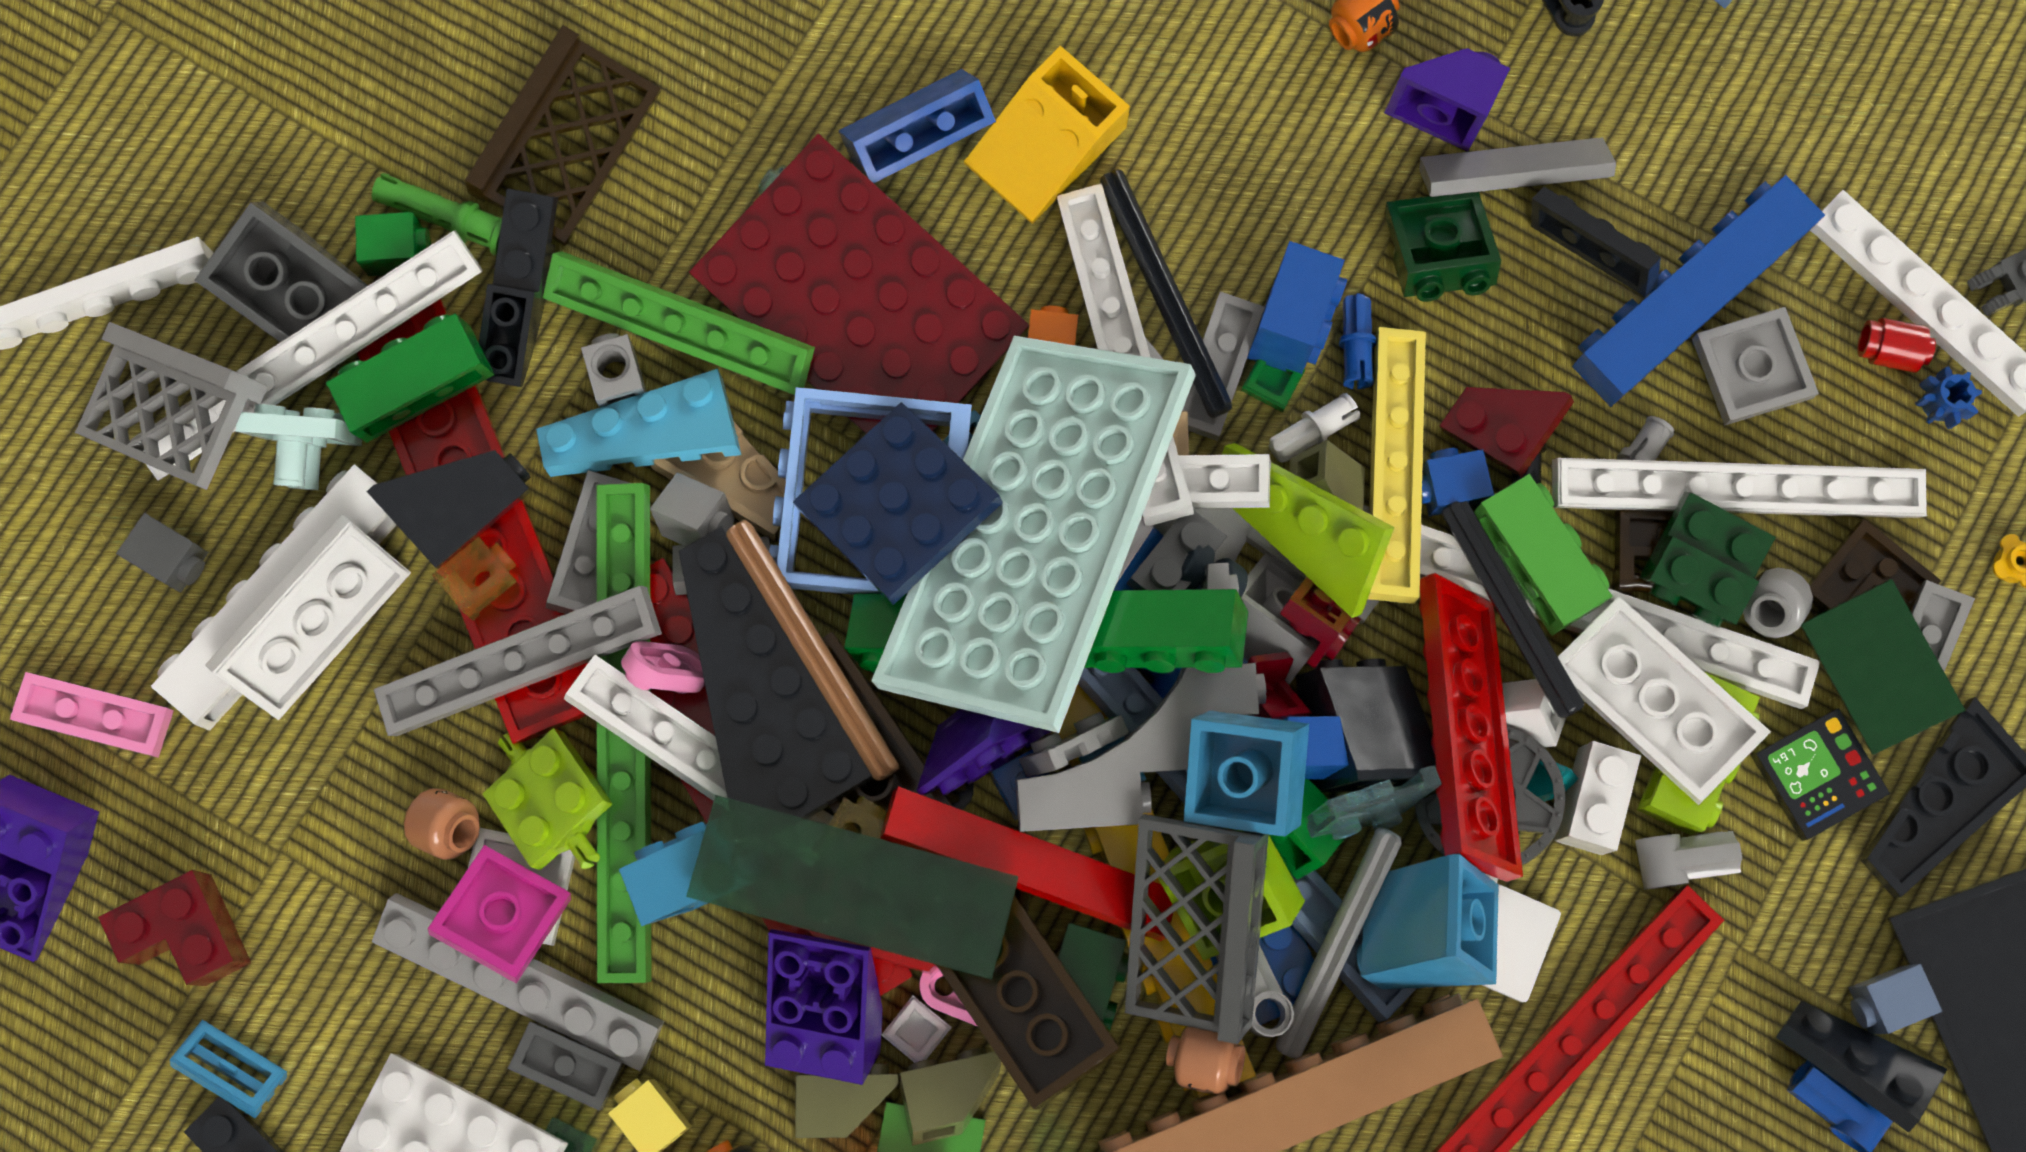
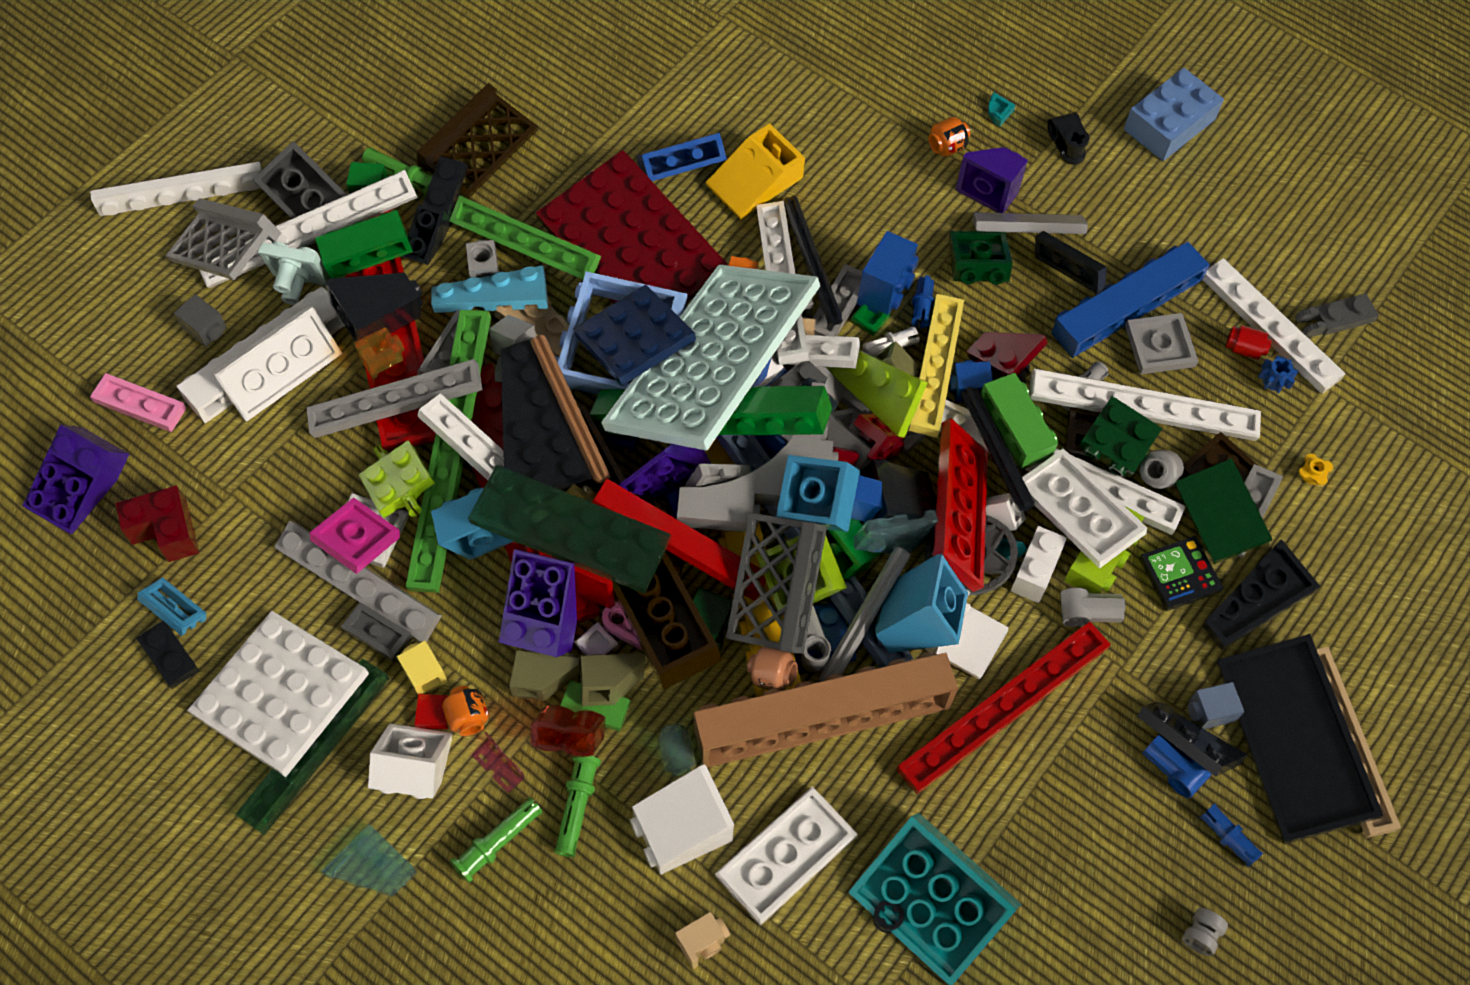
camera: 10 degrees right, 15 degrees down
(441, 823) = (330, 485): nougat head -> none
(663, 667) = (486, 413): bright pink plate -> none

